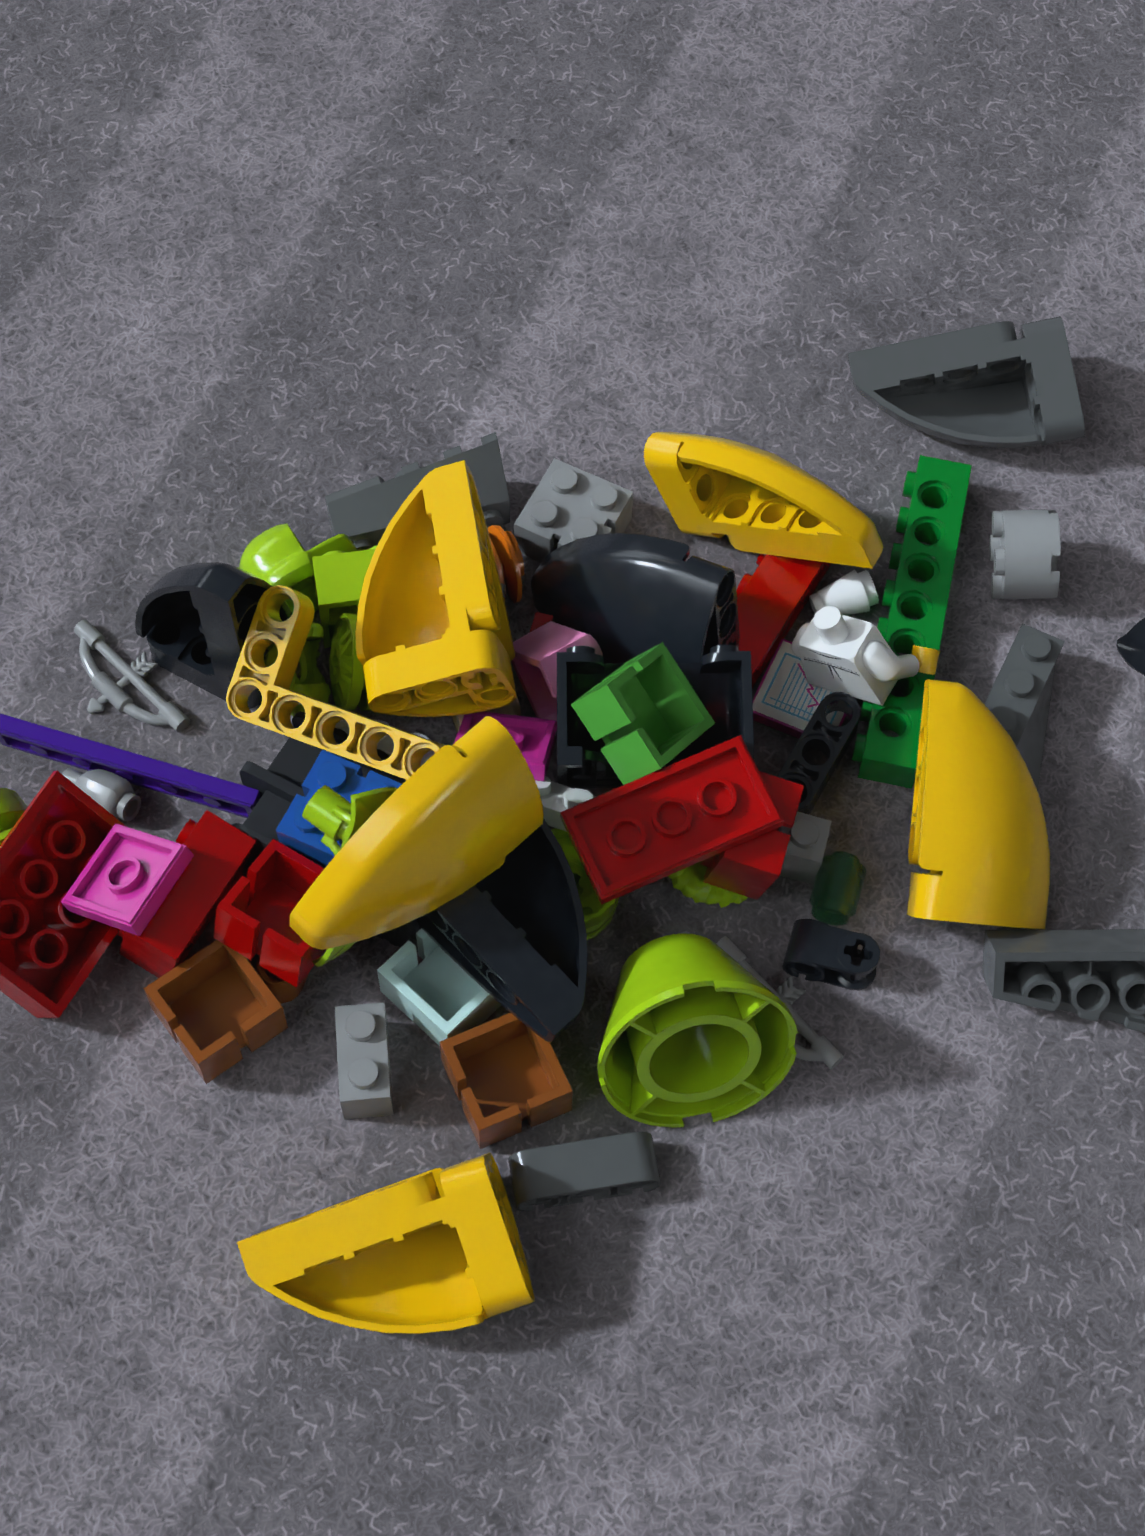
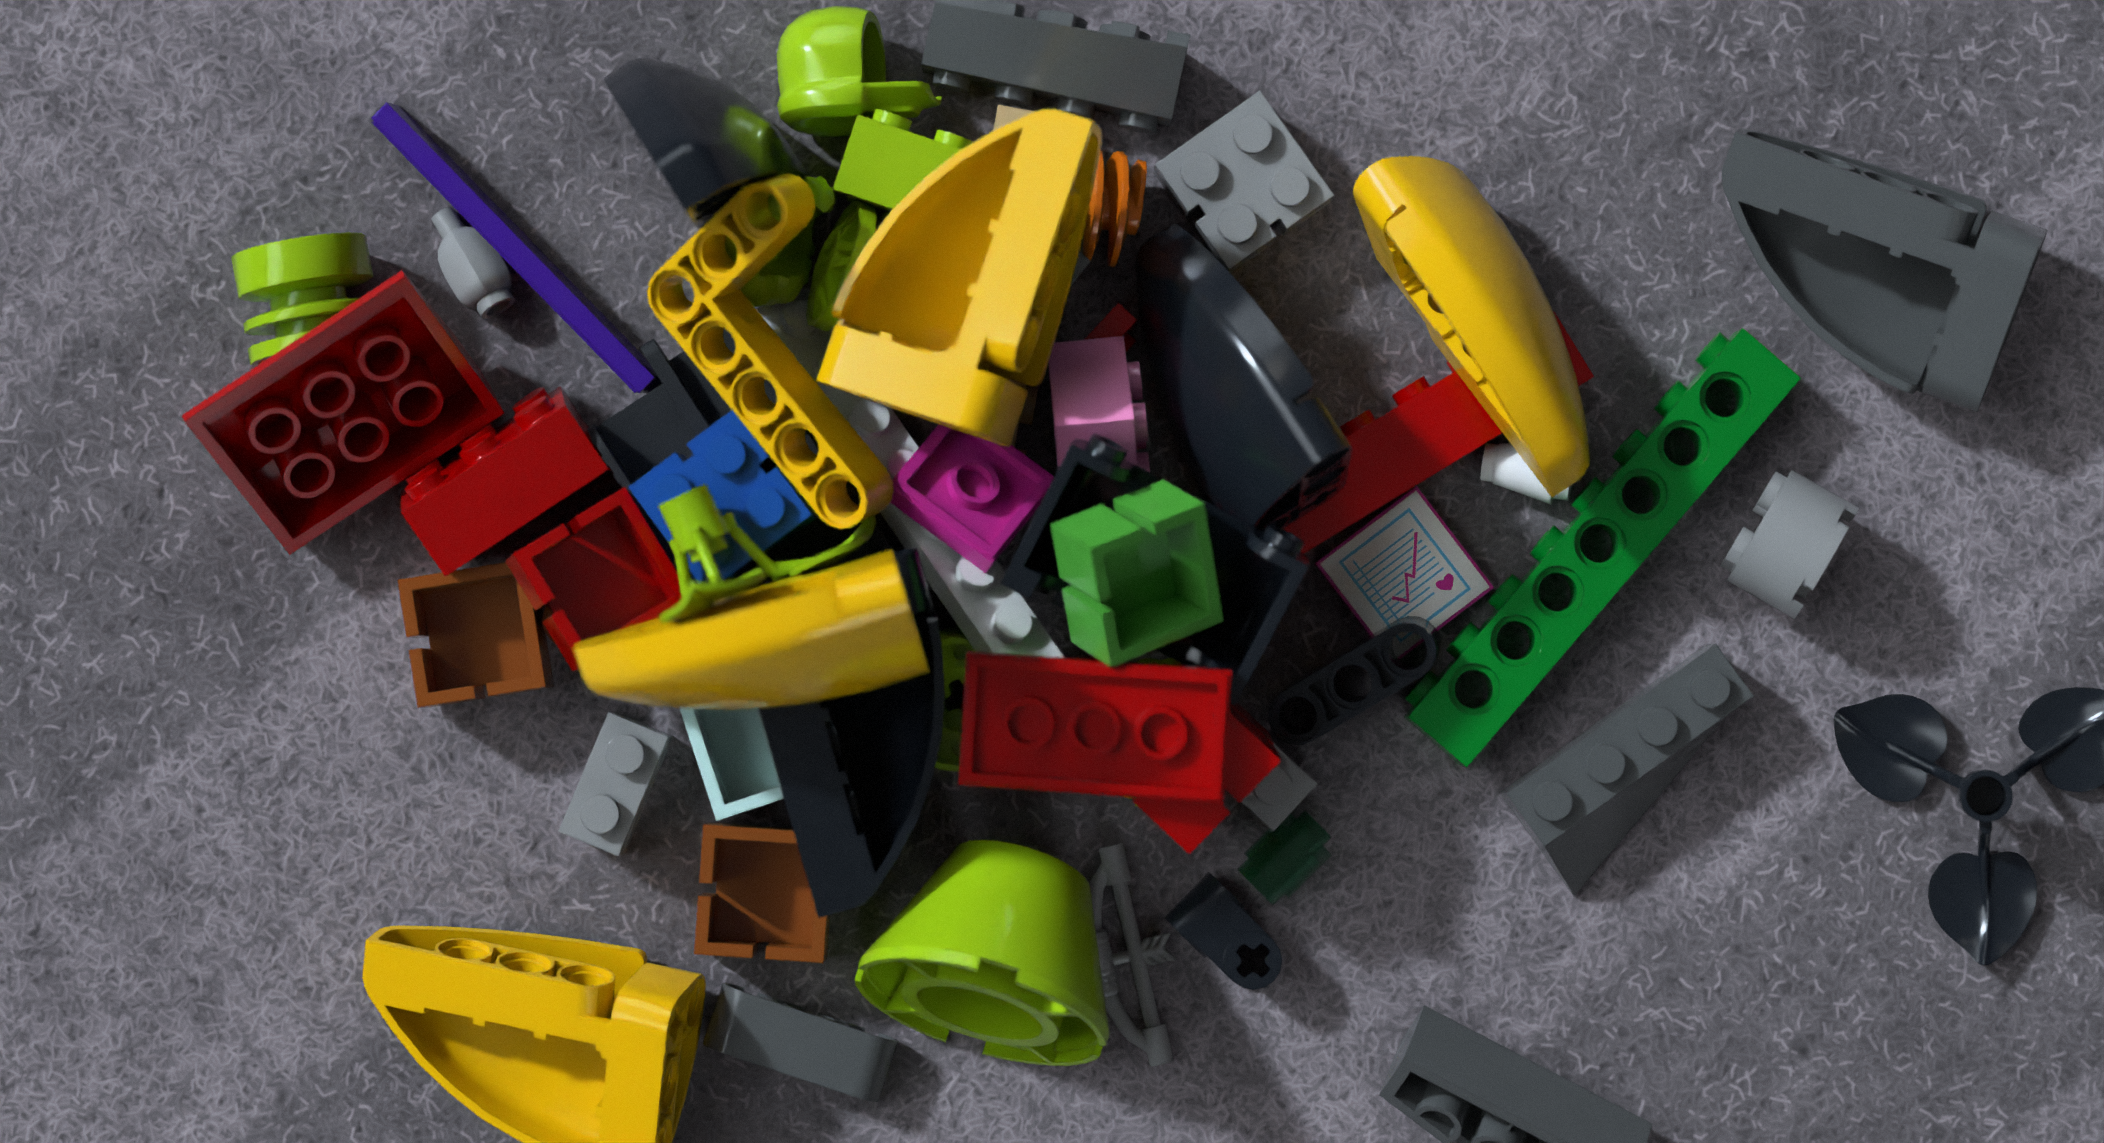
camera: 25 degrees right, 25 degrees up
(113, 692) = (597, 106): light grey piece -> none
(127, 879) = (432, 448): dark pink tile -> none
(855, 657) = (1469, 590): white torso -> none
(974, 819) = (1483, 881): yellow panel -> none

